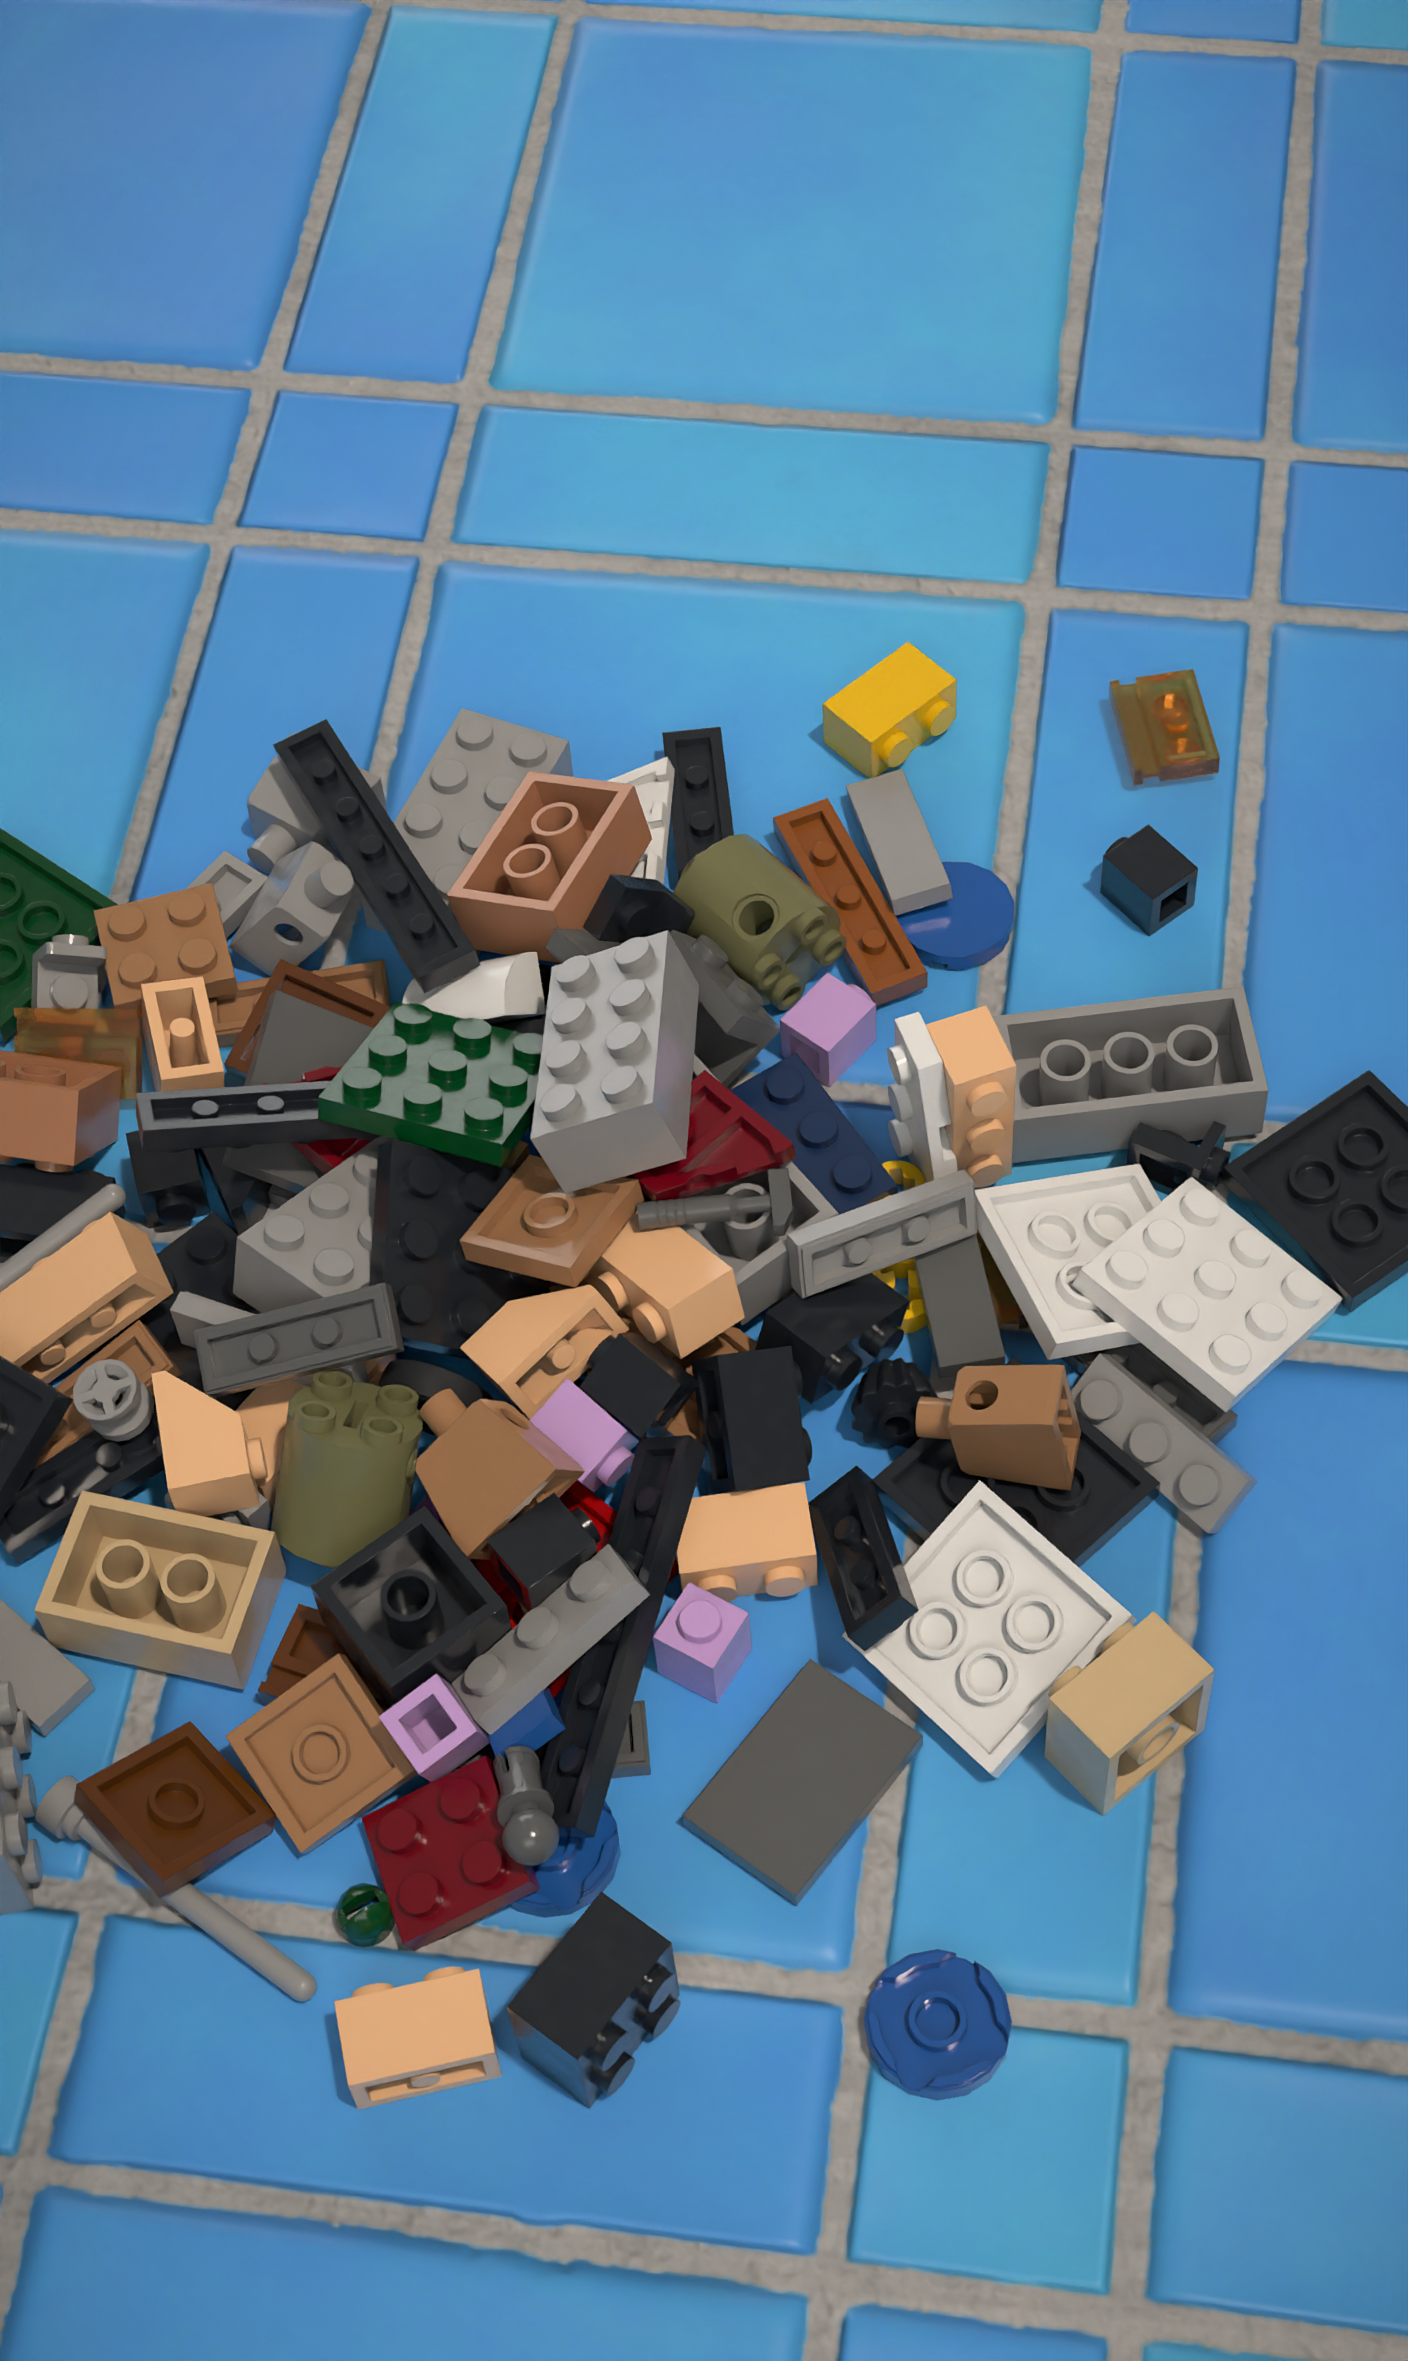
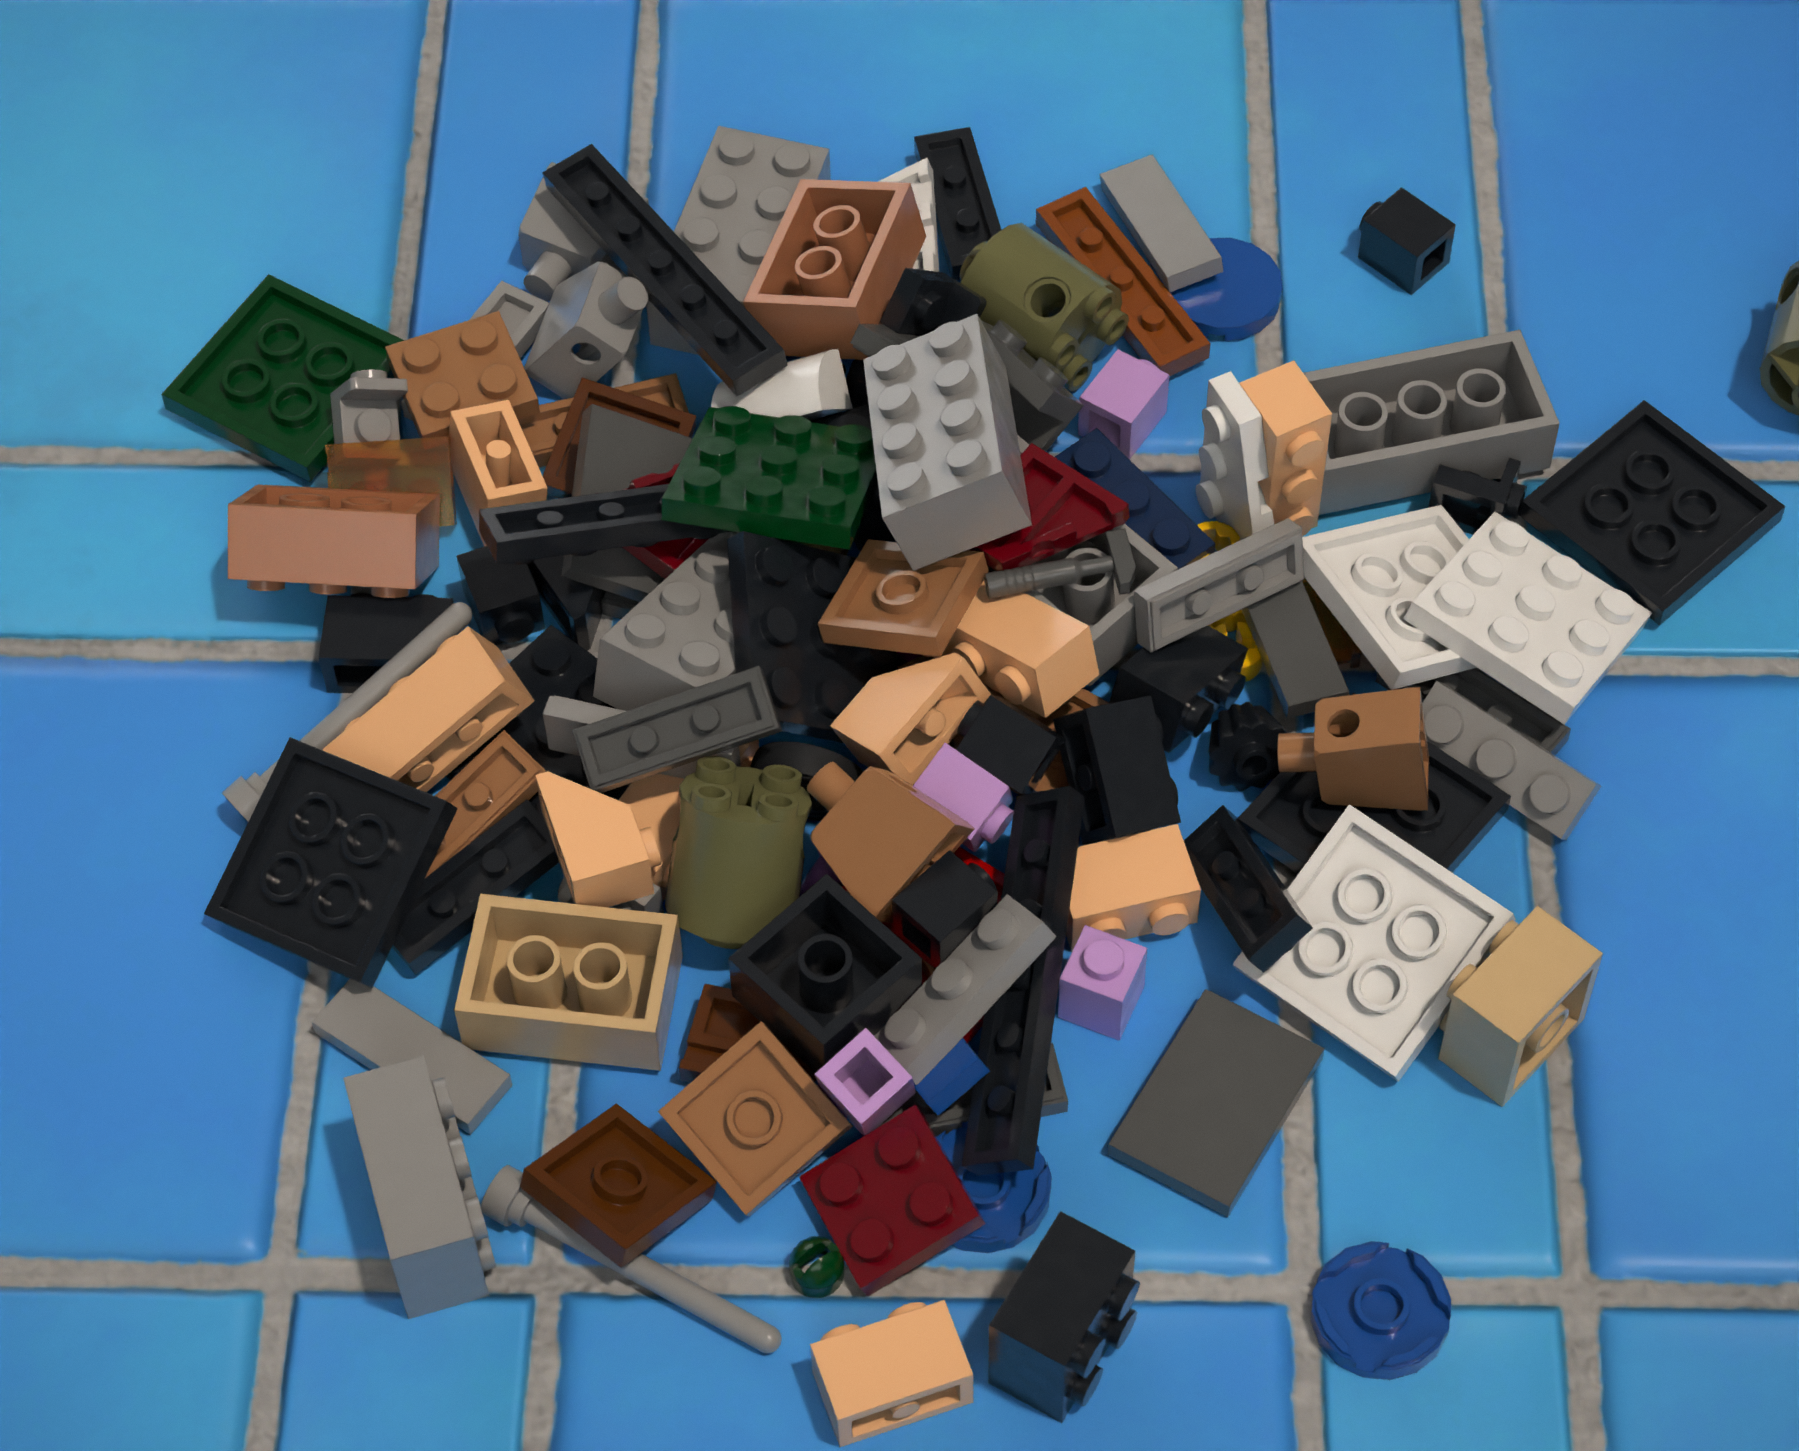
camera: 10 degrees left, 0 degrees up
(96, 1396) = (480, 804): light grey wheel -> none
(525, 1808) = (965, 1147): dark grey pin -> none
(890, 711) = (1131, 100): yellow brick -> none
(1164, 727) = (1396, 97): clear orange plate -> none

